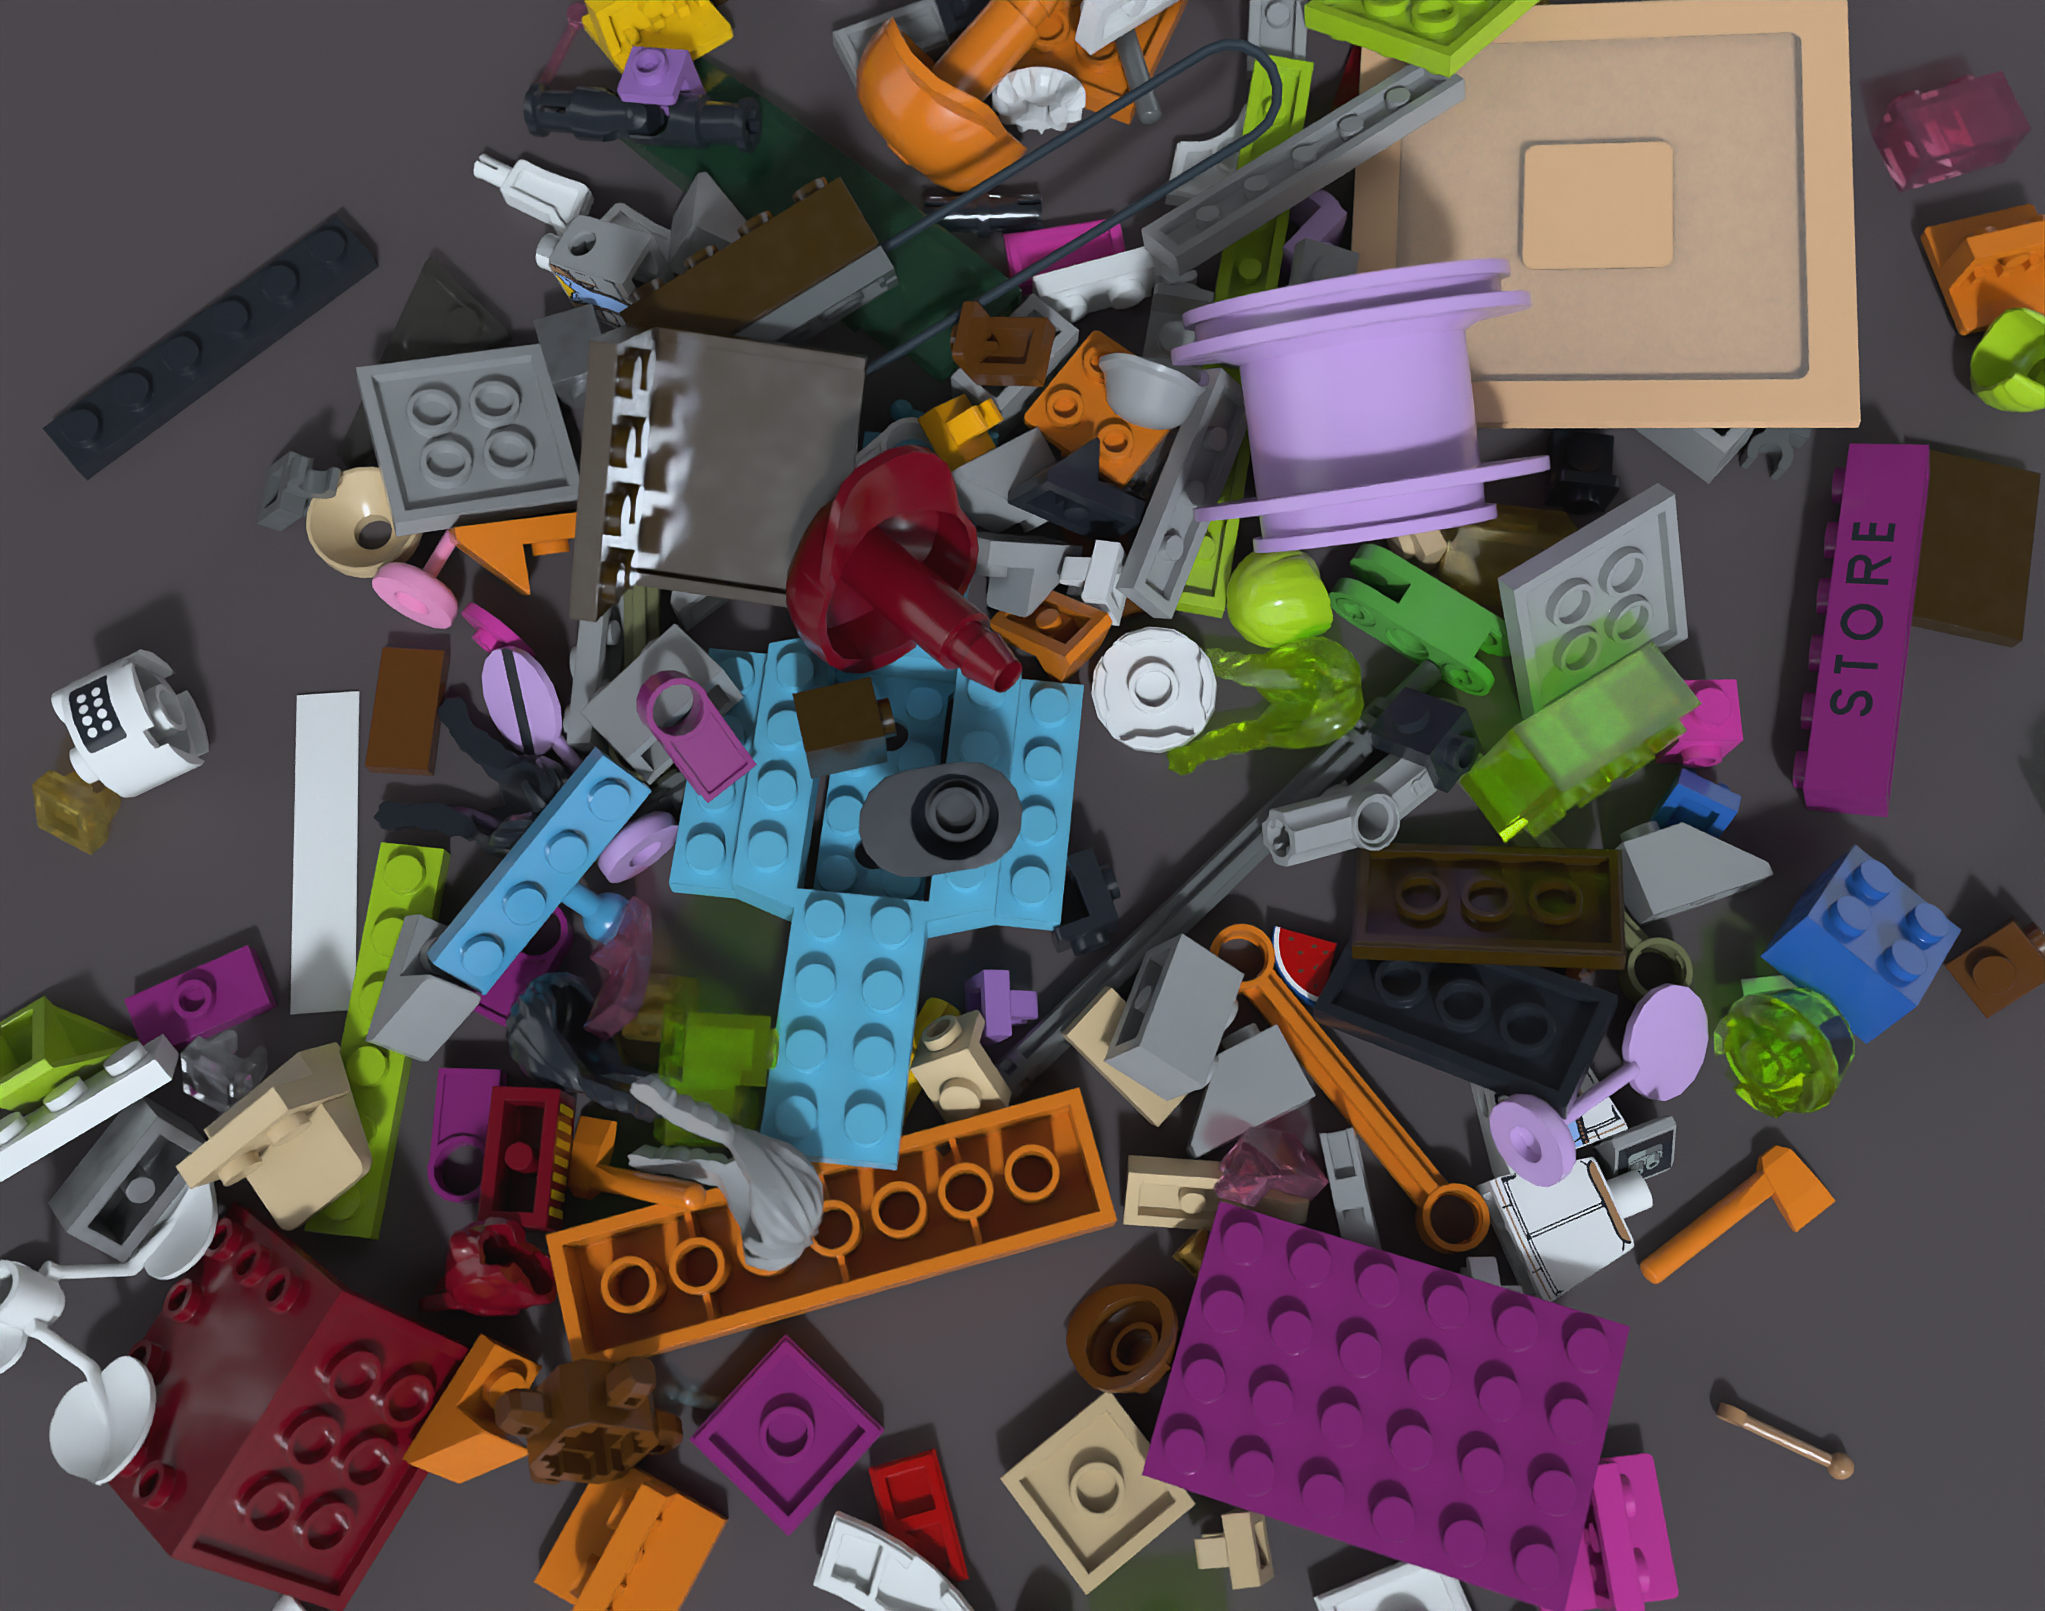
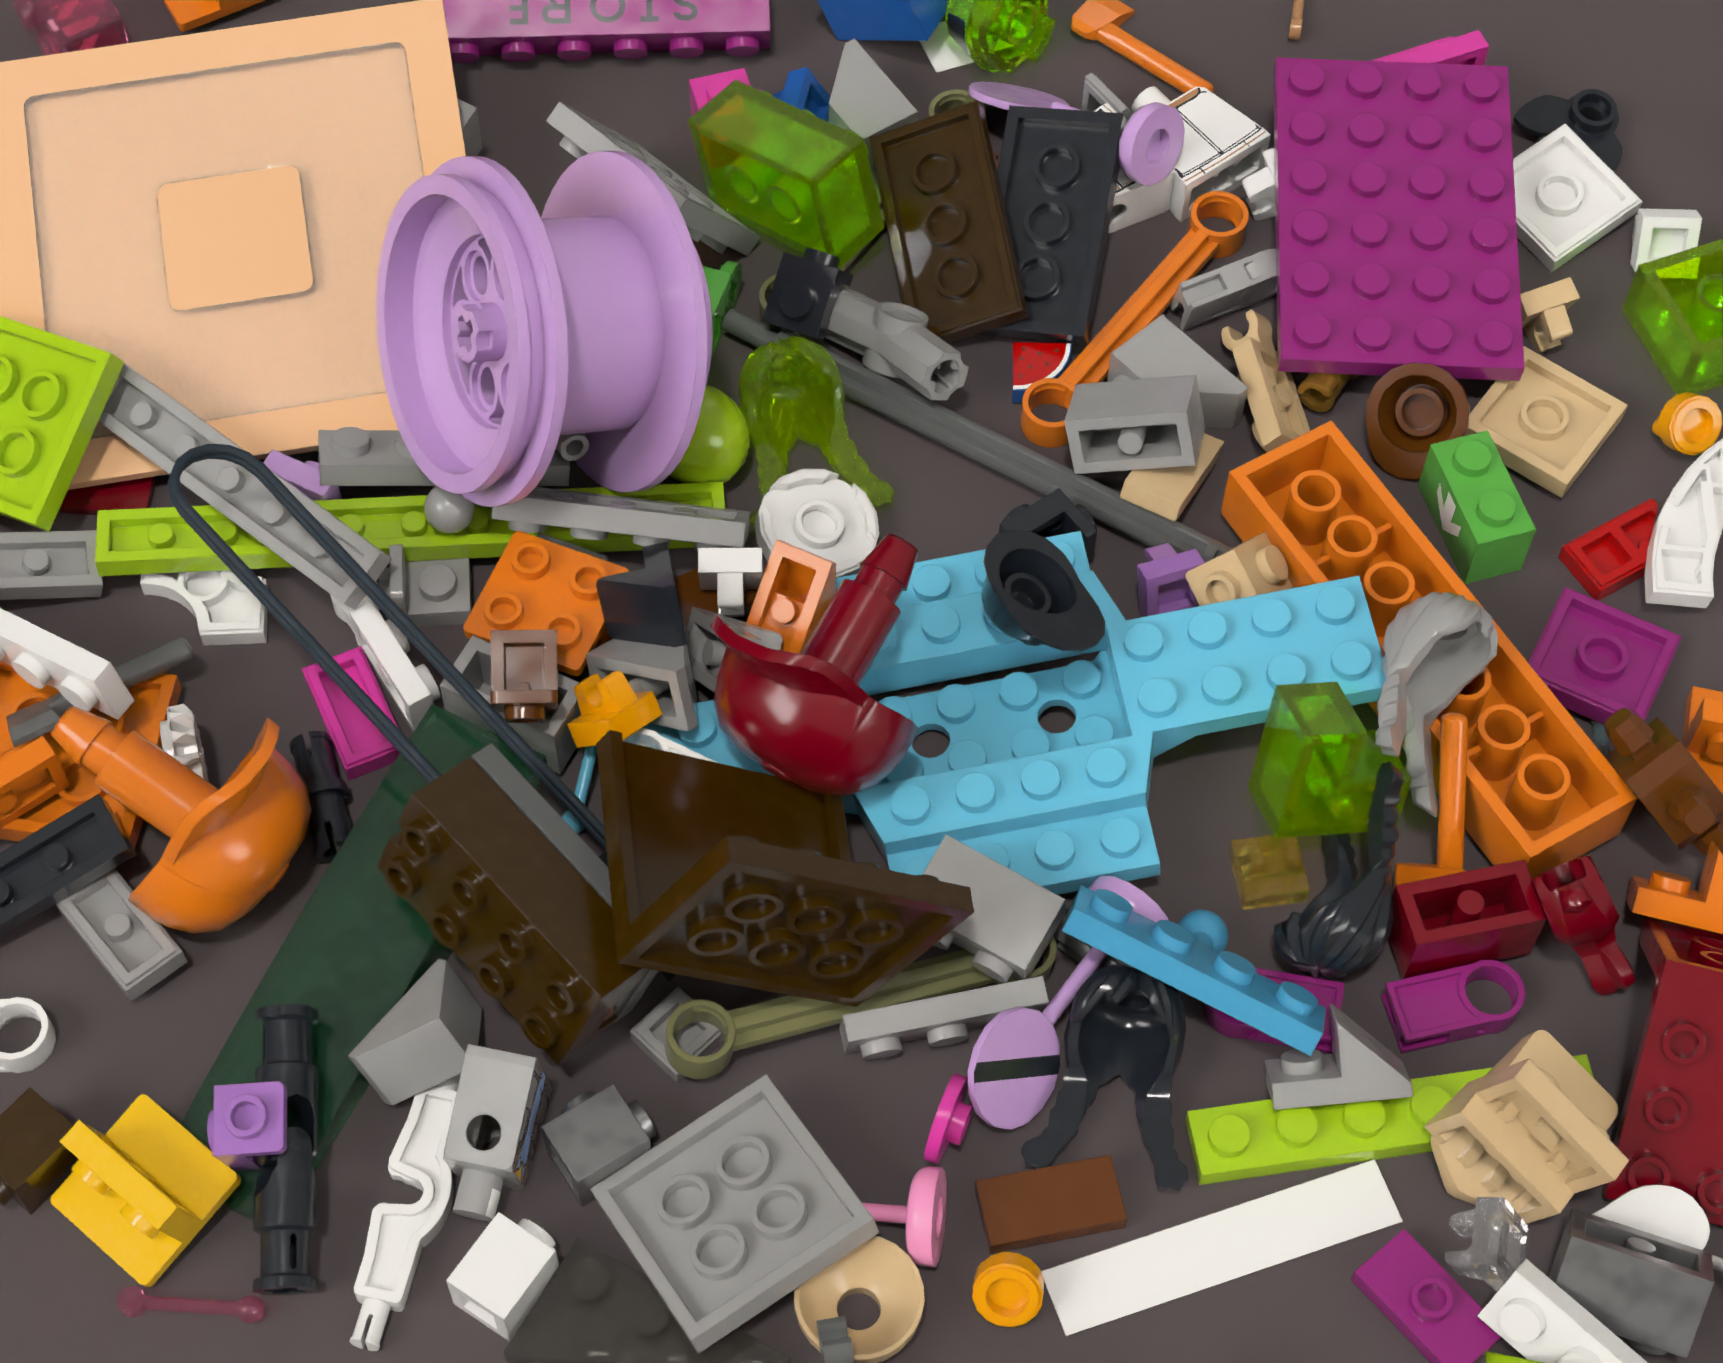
camera: 105 degrees left, 15 degrees down
(337, 648) = (1008, 1289): none -> light orange tile
(490, 265) = (504, 1274): none -> white brick
(500, 544) = (843, 1129): orange slope -> none
(628, 958) = (1258, 889): clear pink slope -> none
(701, 744) = (1018, 846): magenta piece -> none
(843, 726) = (970, 719): dark brown brick -> none
(997, 1363) = (1476, 507): none -> bright green brick
(1151, 389) = (536, 537): light grey helmet -> none
(1266, 1161) = (1238, 335): clear pink slope -> none

